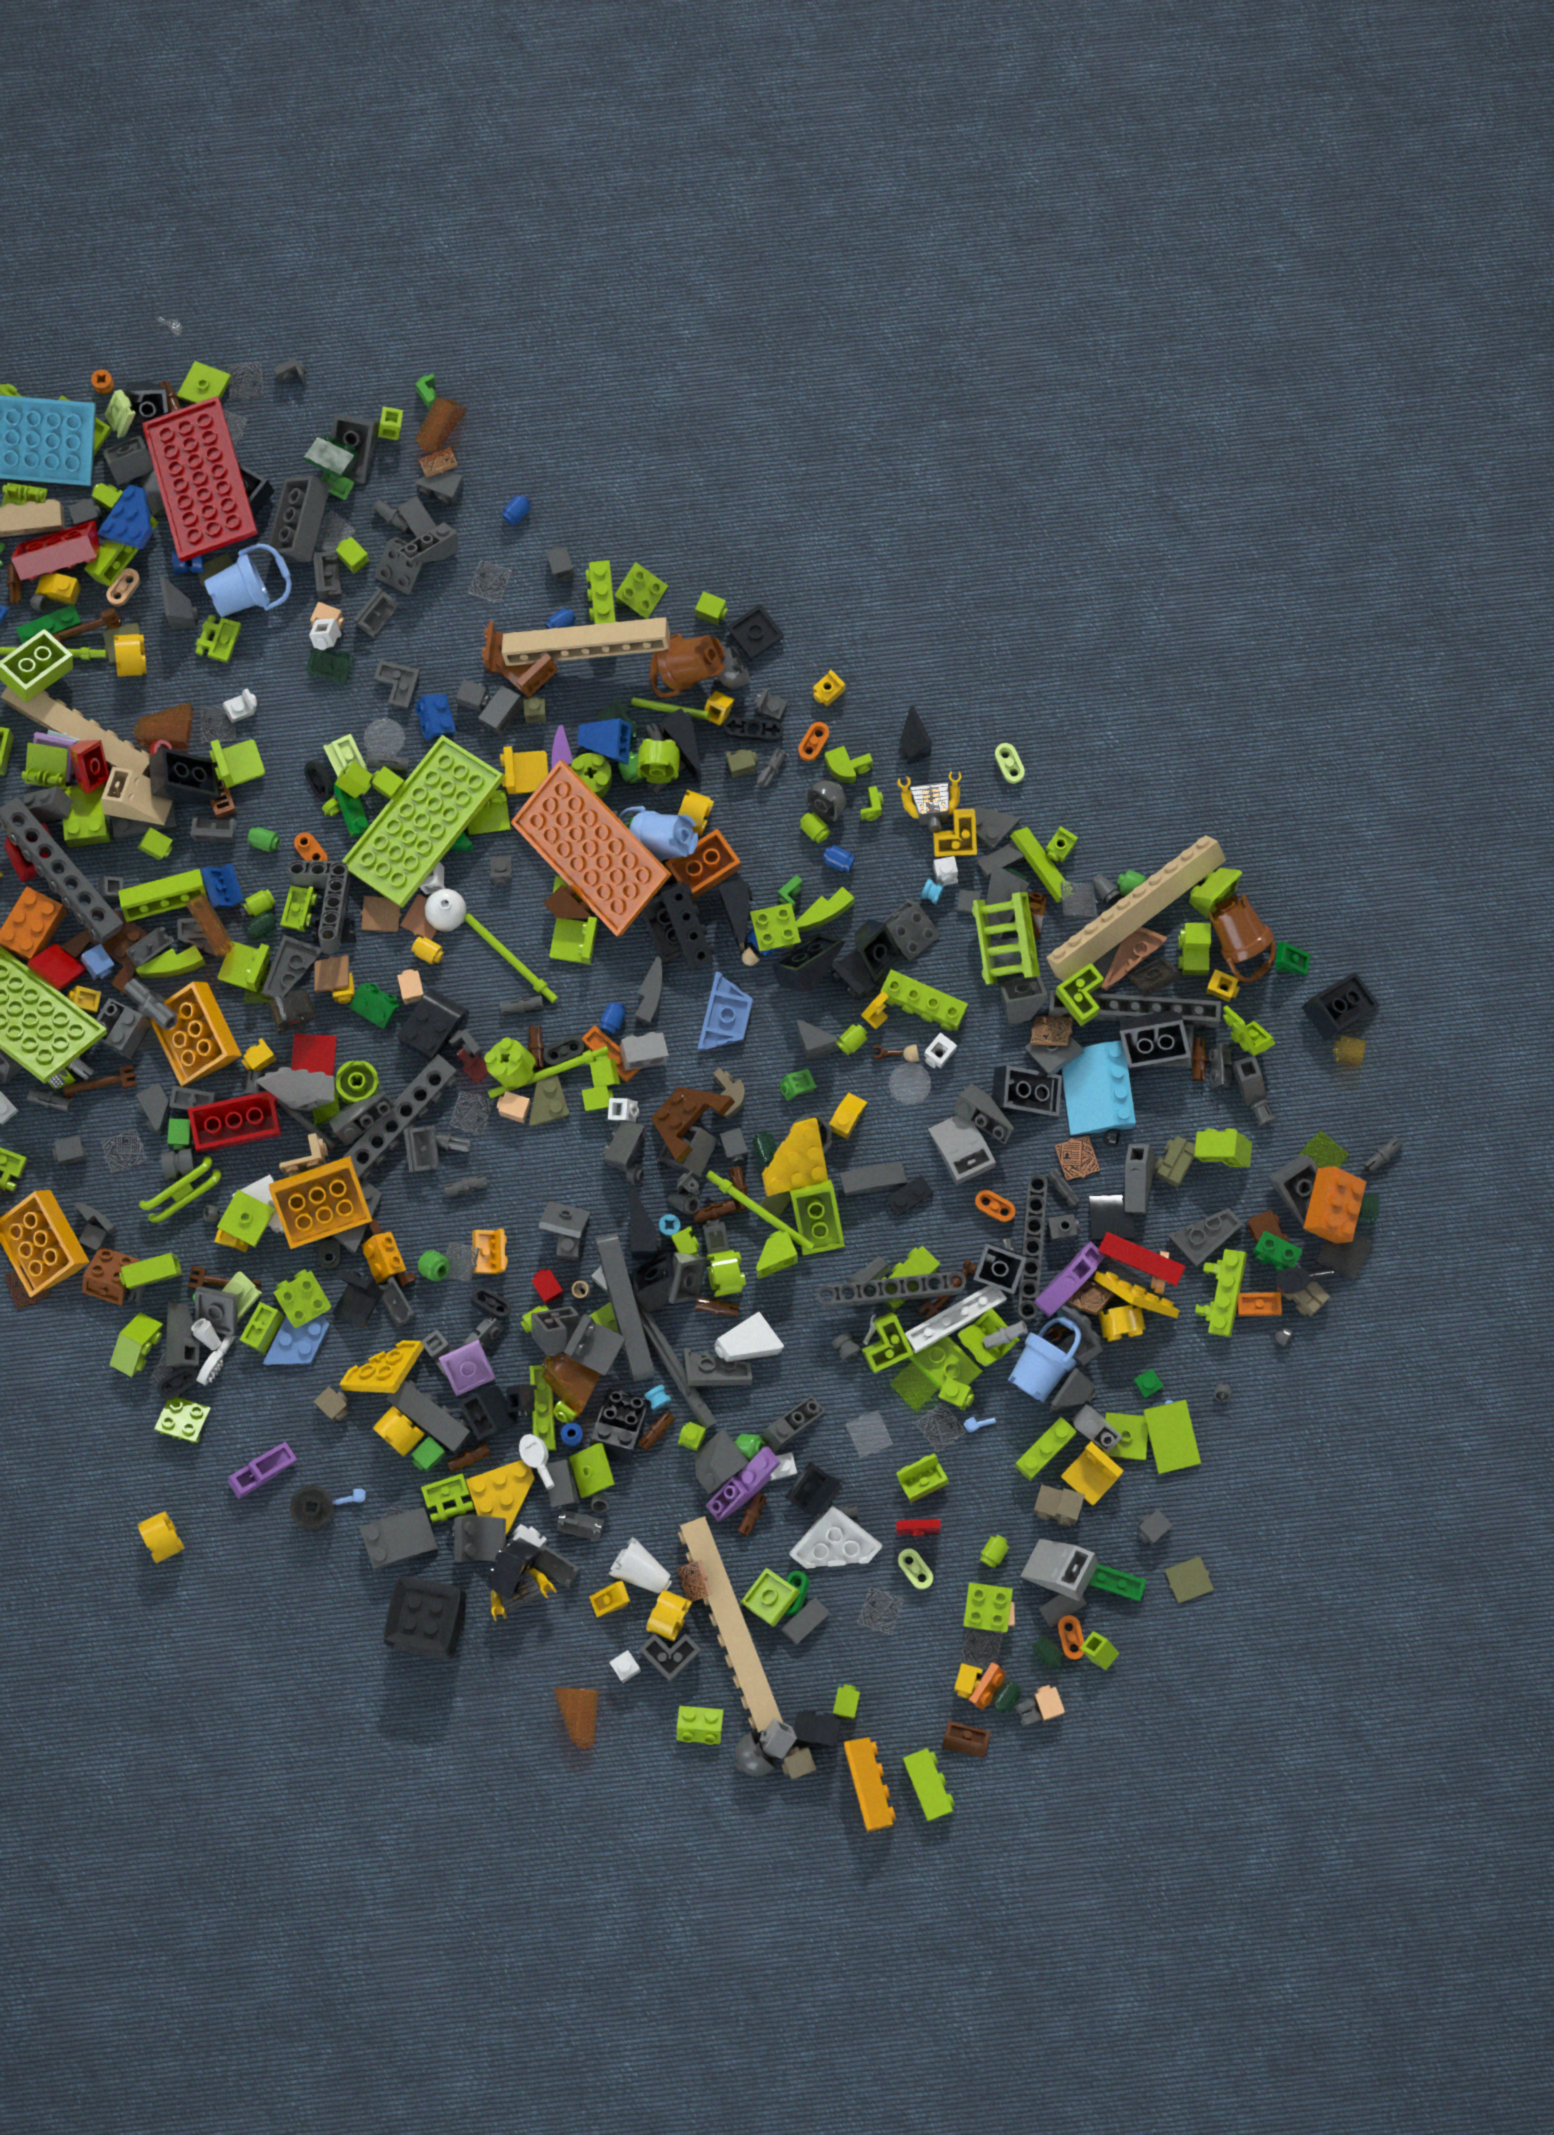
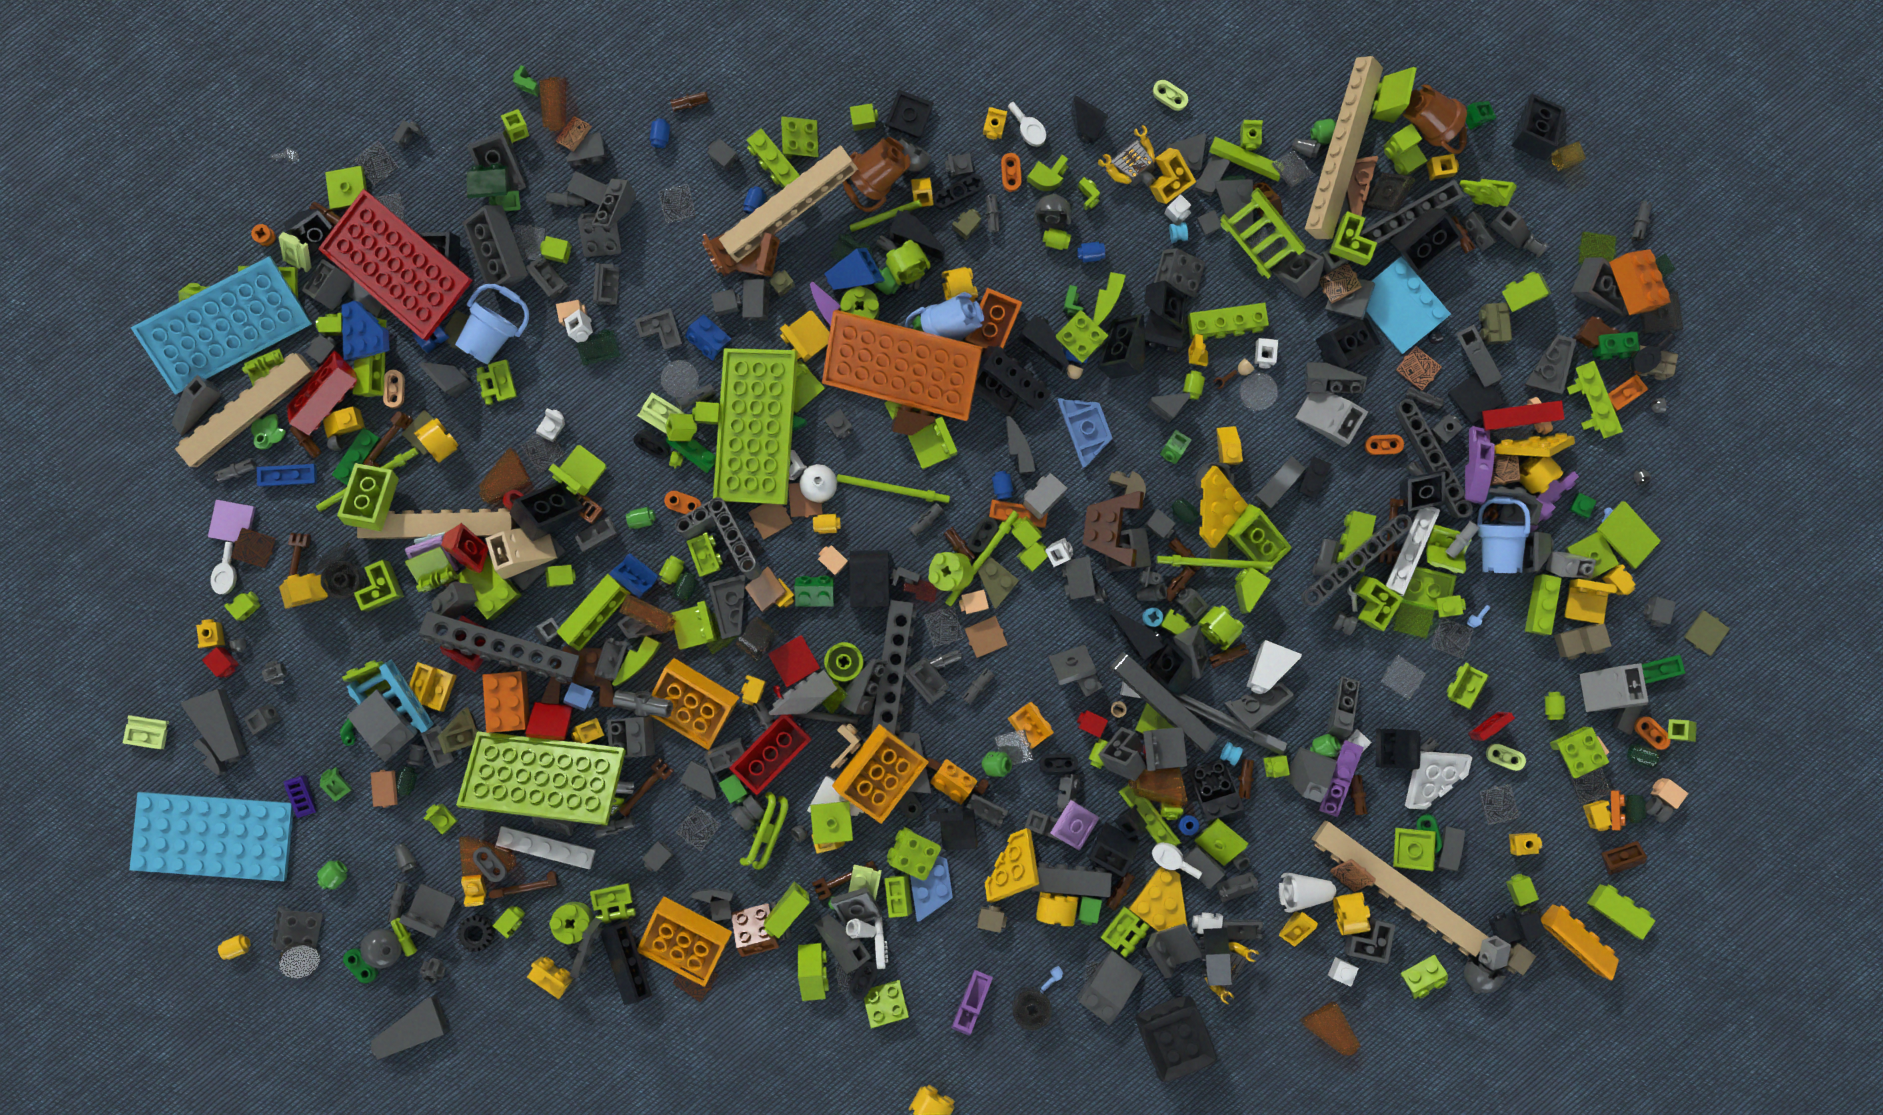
camera: 35 degrees left, 10 degrees up
(504, 1147) = (986, 637): none -> medium nougat piece
(562, 498) = (689, 101): none -> reddish brown axle
(858, 712) = (1030, 128): none -> white piece
(869, 1661) = (1518, 843): none -> yellow brick
(1119, 1349) = (1553, 495): none -> medium lavender slope
(1135, 1474) = (1621, 579): none -> yellow brick

